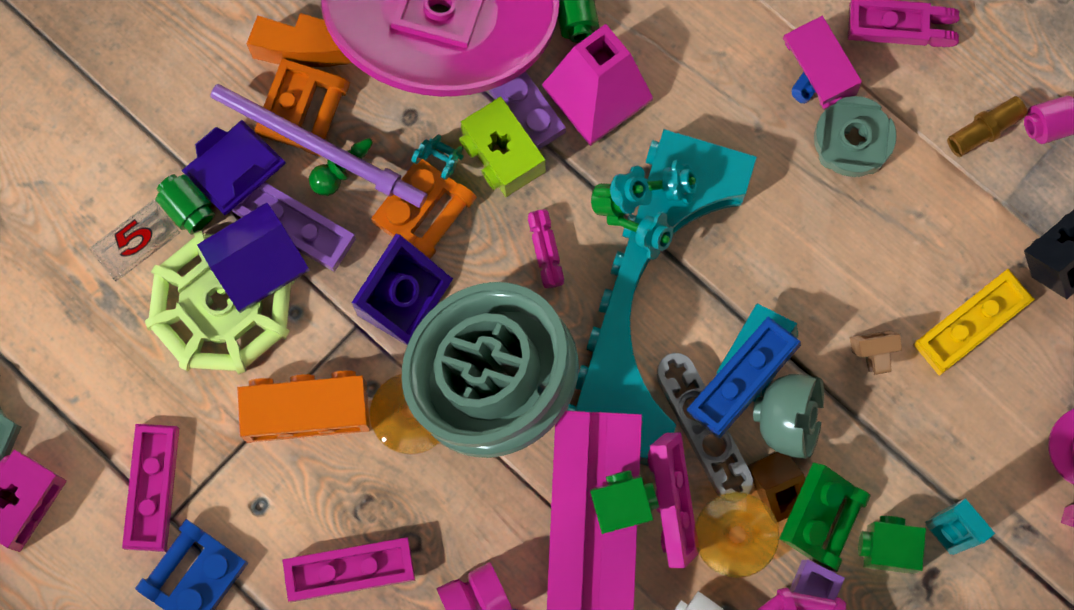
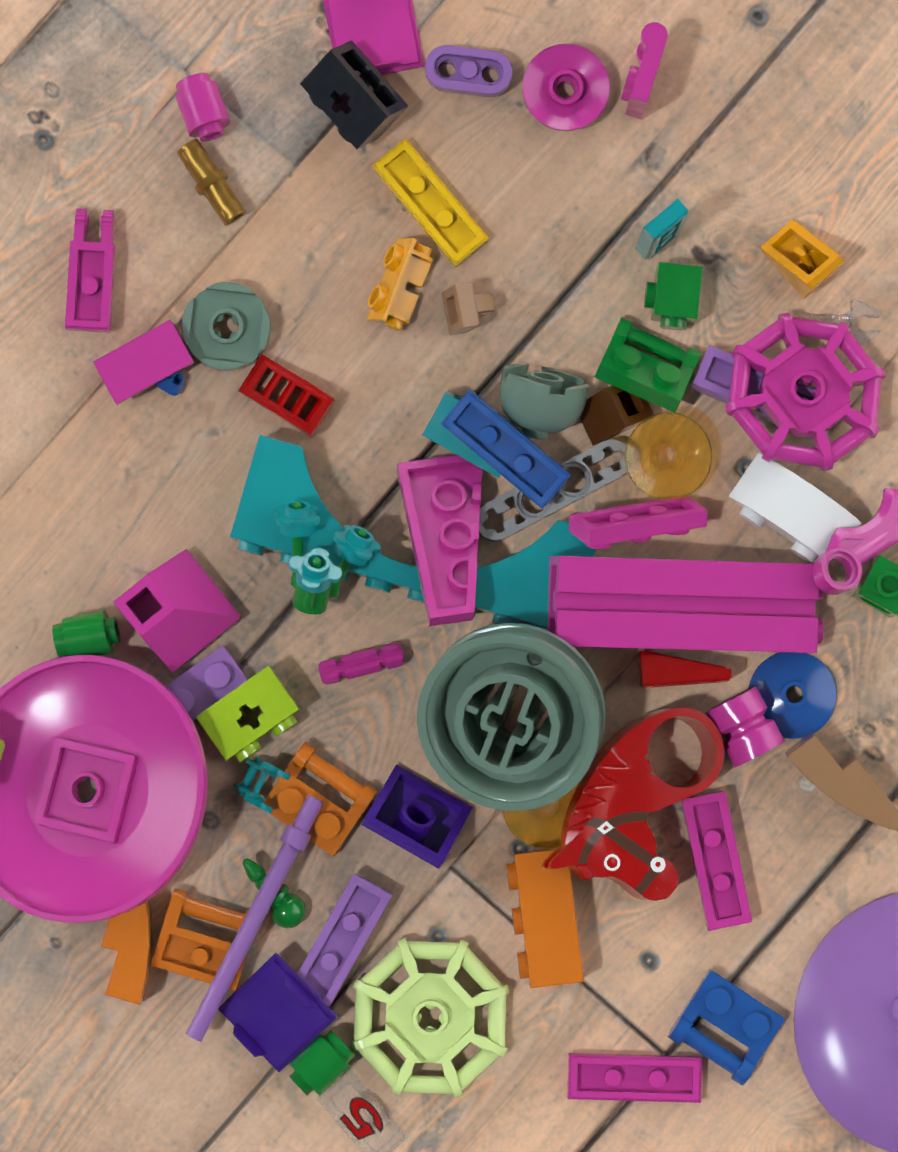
camera: 95 degrees left, 10 degrees up
(253, 257) = (384, 982): dark purple slope -> none
(393, 461) = (608, 813): none -> red animal
(531, 526) = (668, 670): none -> red slope
(623, 501) = (652, 573): green brick -> none
(670, 319) = (443, 524): none -> dark pink wing
(775, 214) = (317, 414): none -> red slope
(913, 295) = (403, 266): none -> light orange hinge

